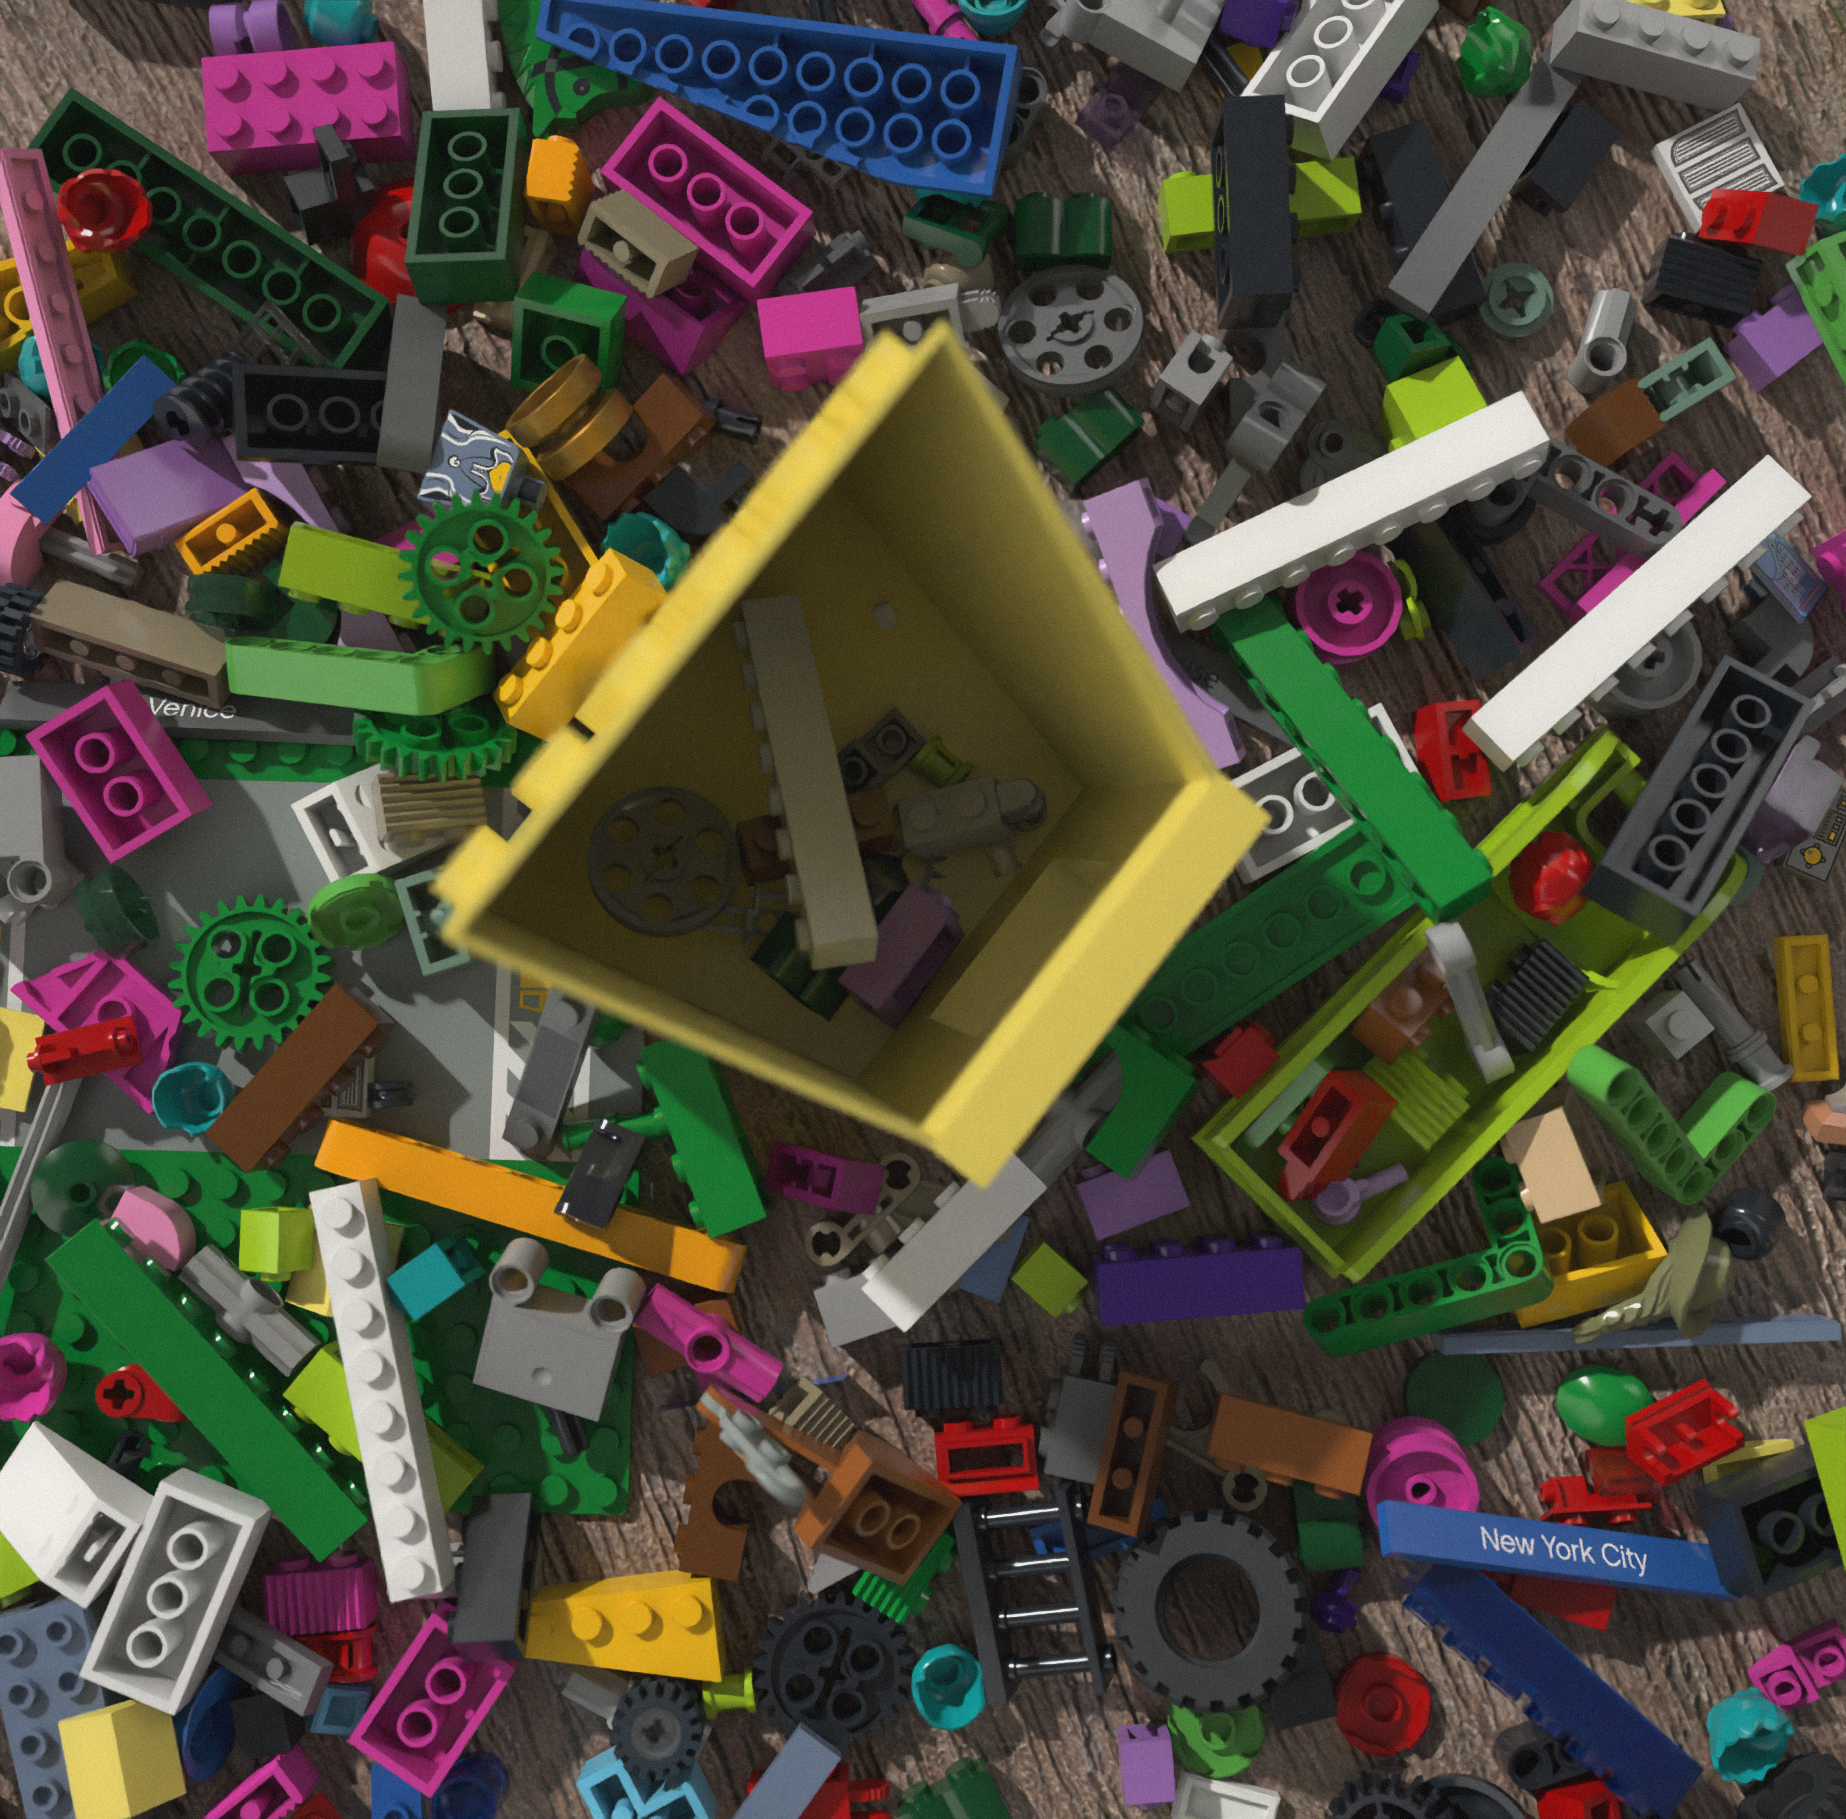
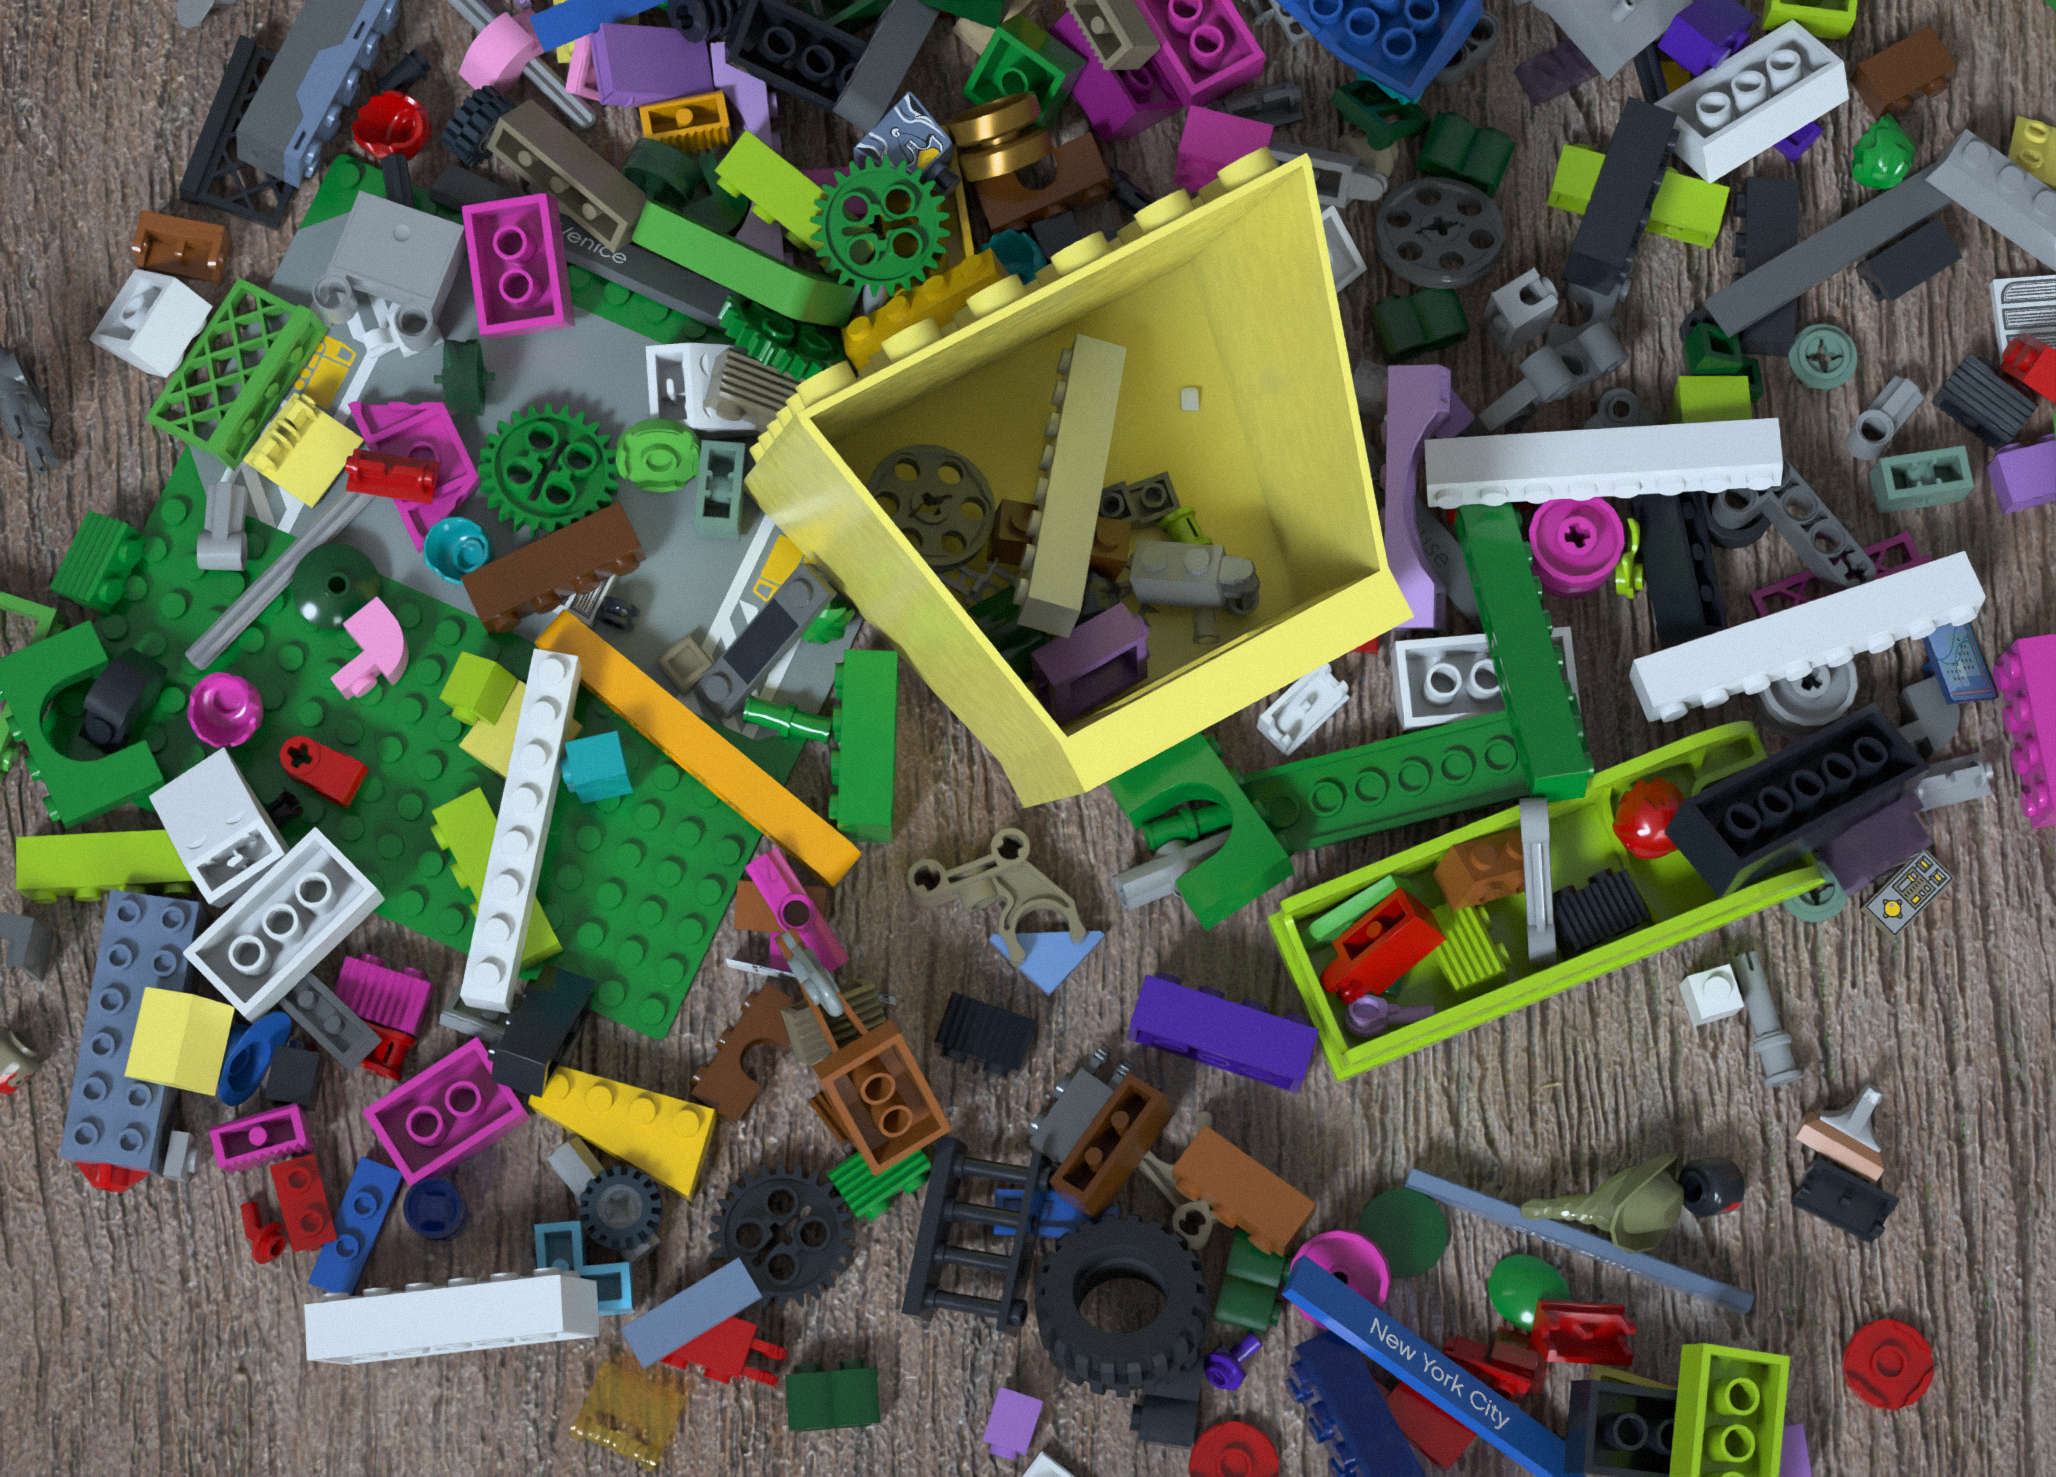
camera: 20 degrees right, 10 degrees down
(211, 1385) = (380, 777): green brick -> none
(249, 1310) = (428, 737): light grey piece -> none
(340, 1708) = (350, 1095): medium azure slope -> none
(483, 1115) = (685, 664): none -> dark tan tile
(554, 1342) = (673, 860): light grey piece -> none
(601, 1175) = (769, 742): black hinge -> none
(732, 1694) = (686, 1220): lime bush -> none
(824, 1178) = (948, 822): magenta brick -> none
(827, 1572) = (819, 1149): light grey slope -> none
(847, 1309) = (942, 943): light grey brick -> none
(949, 1241) = (1035, 910): white brick -> none
(949, 1687) = (873, 1288): teal hair -> none
(1004, 1430) = (981, 1130): red window -> none
(1050, 1279) = (1100, 990): lime brick -> none
(1121, 1204) = (1189, 951): medium lavender brick -> none
(1215, 1743) = (1082, 1427): bright green tile -> none
(1238, 1058) = (1329, 860): red window -> none
(1445, 1280) = (1429, 1126): green beam -> none
(1446, 755) = (1613, 704): red hinge -> none
(1556, 1157) = (1566, 1049): tan brick -> none
(1595, 1257) = (1549, 1150): yellow slope -> none
(1617, 427) = (1859, 488): reddish brown brick -> none
(1680, 1156) = (1668, 1107): bright green beam -> none
(1806, 1007) = (1838, 1035): yellow tile -> none

